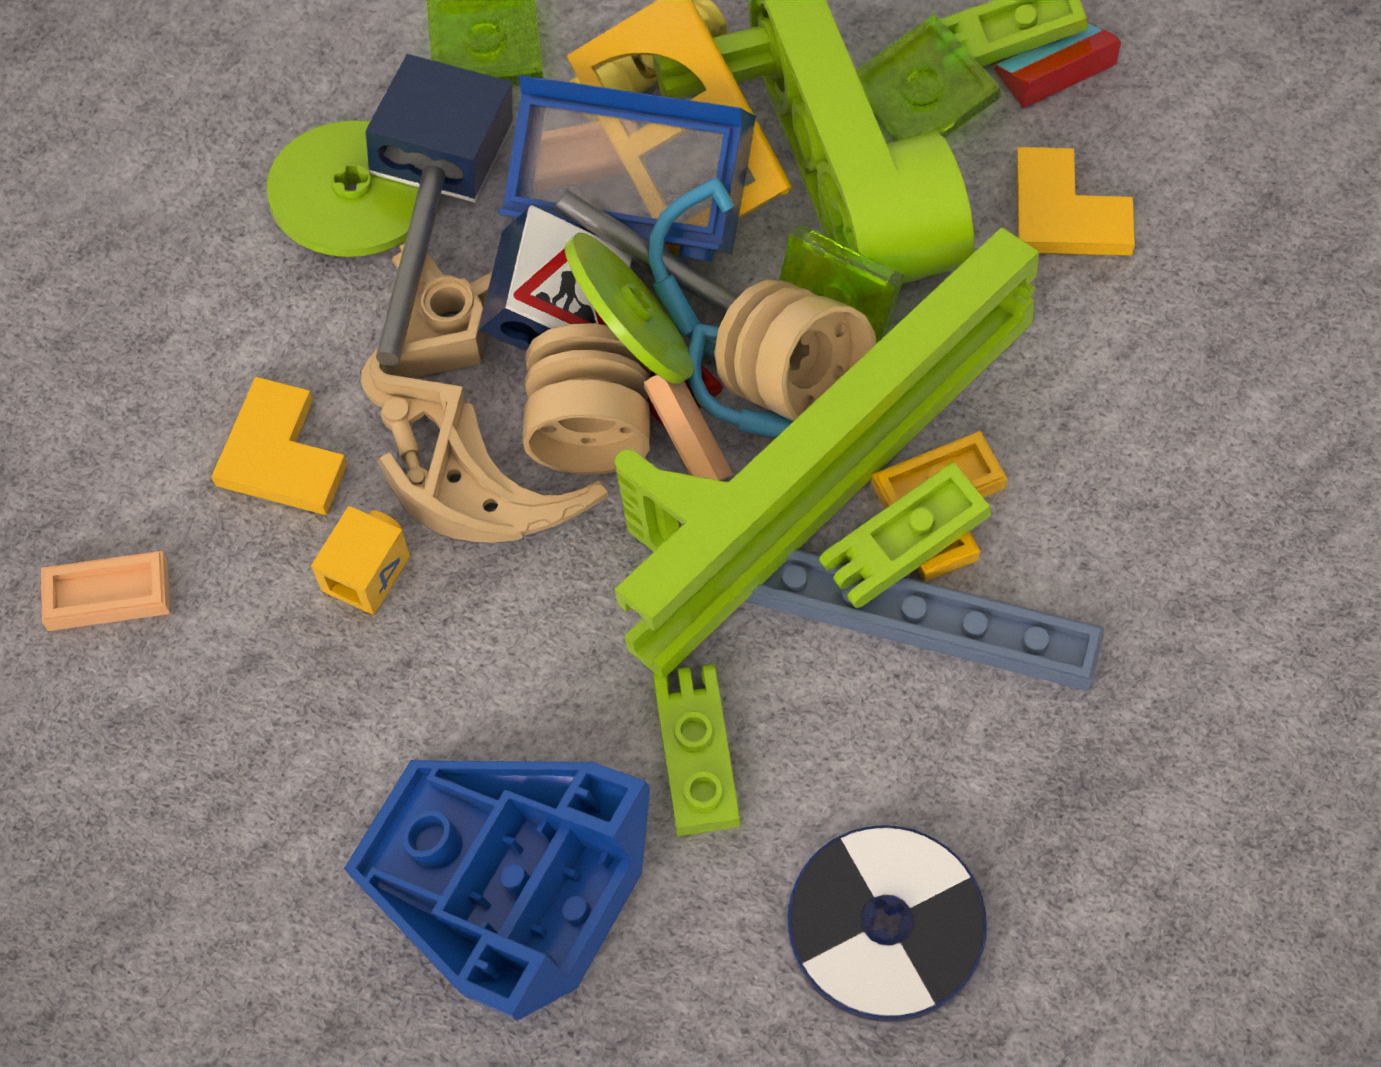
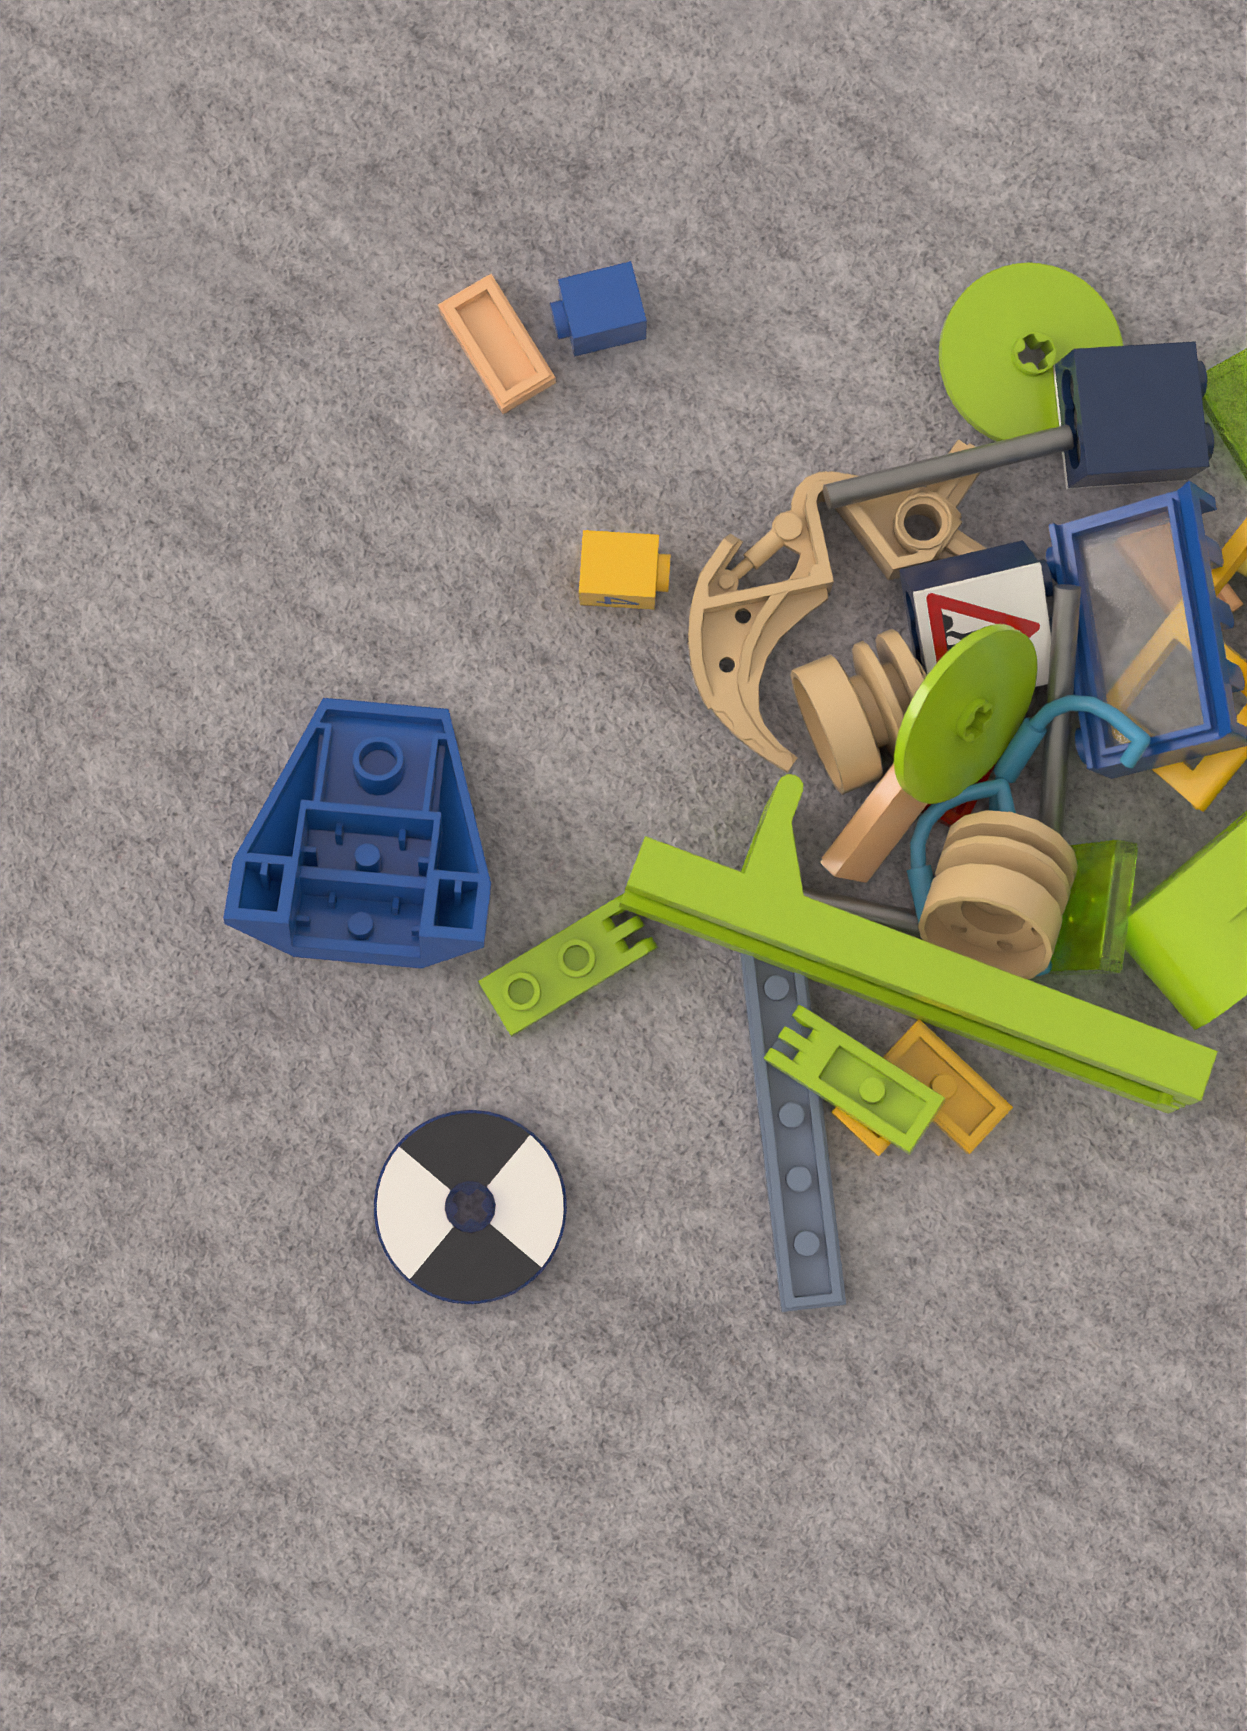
camera: 65 degrees right, 20 degrees up
(125, 487) = (599, 309): none -> blue brick
(267, 460) = (694, 418): yellow tile -> none

